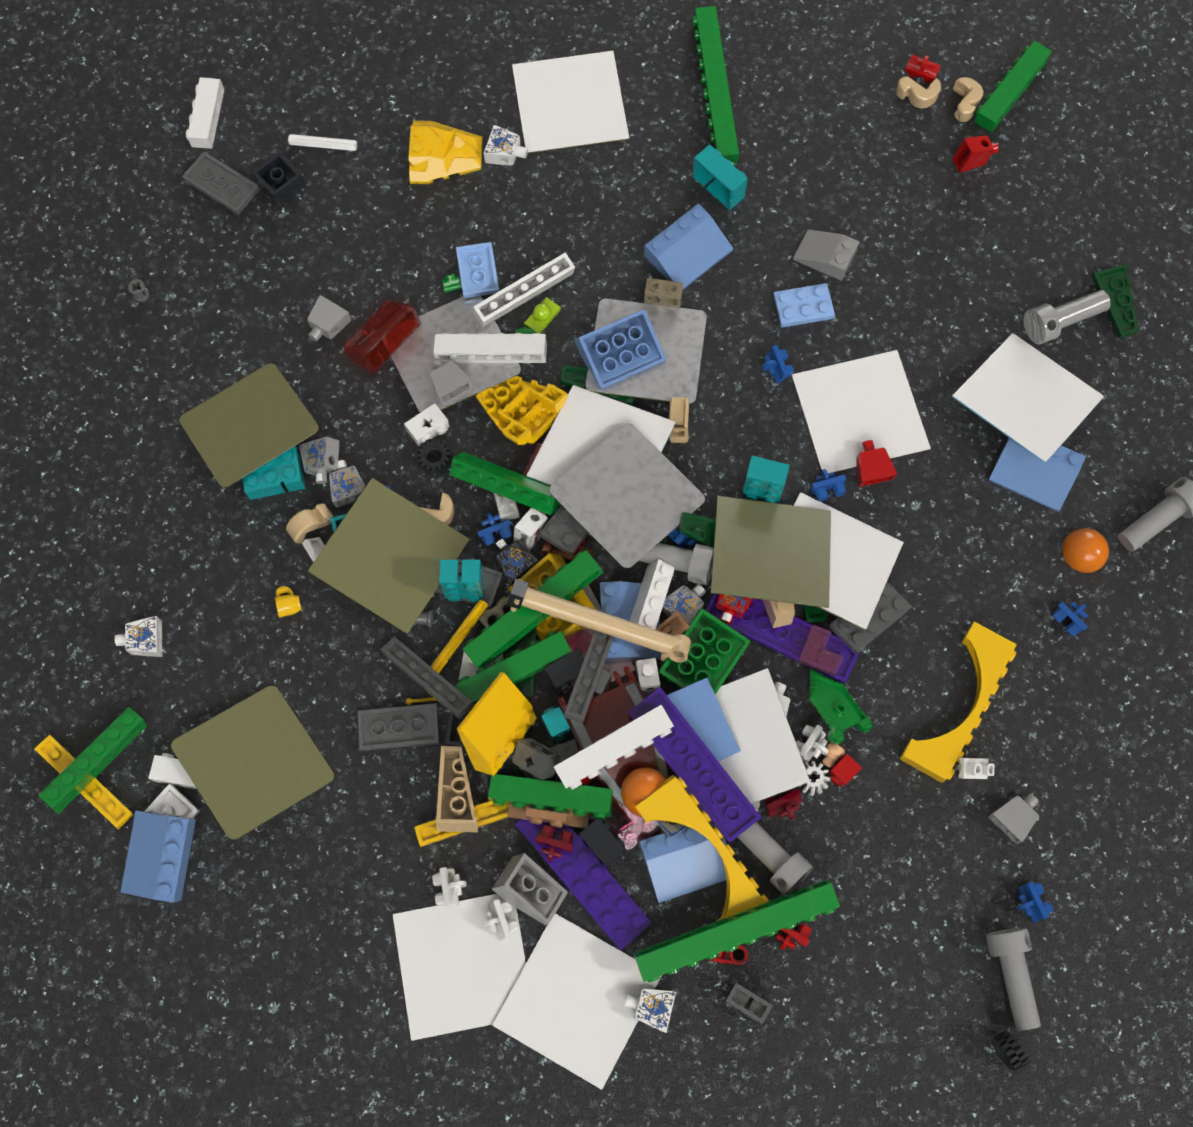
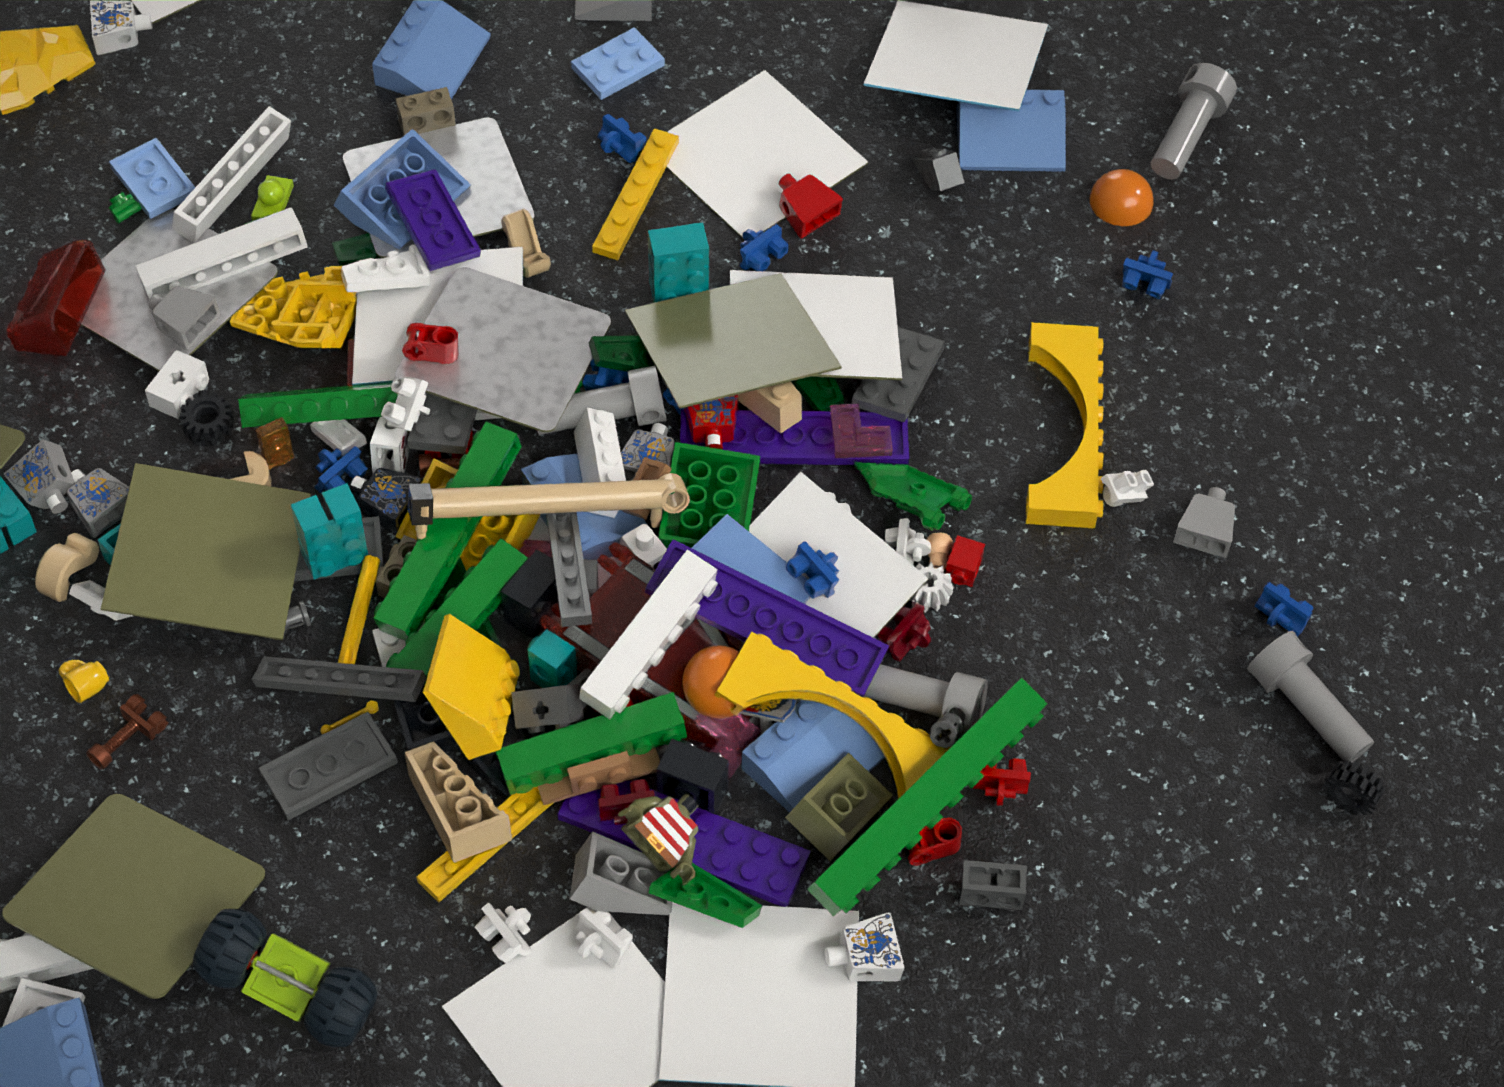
camera: 30 degrees left, 15 degrees down
(307, 634) = (156, 723): none -> copper bar
(310, 857) = (285, 977): none -> black plate
(463, 496) = (275, 443): none -> clear orange plate
(548, 512) = (408, 403): none -> white hips
(566, 876) = (664, 832): none -> torso
(573, 923) = (708, 896): none -> green wing
(577, 474) = (433, 343): none -> red piece
(586, 407) = (392, 272): none -> white wing
(627, 380) = (432, 219): none -> dark purple plate
(682, 903) = (838, 806): none -> olive slope
(744, 750) = (817, 567): none -> blue hips
(768, 408) = (635, 194): none -> yellow plate
(769, 888) = (947, 721): none -> dark grey bush
(973, 476) = (939, 168): none -> slope

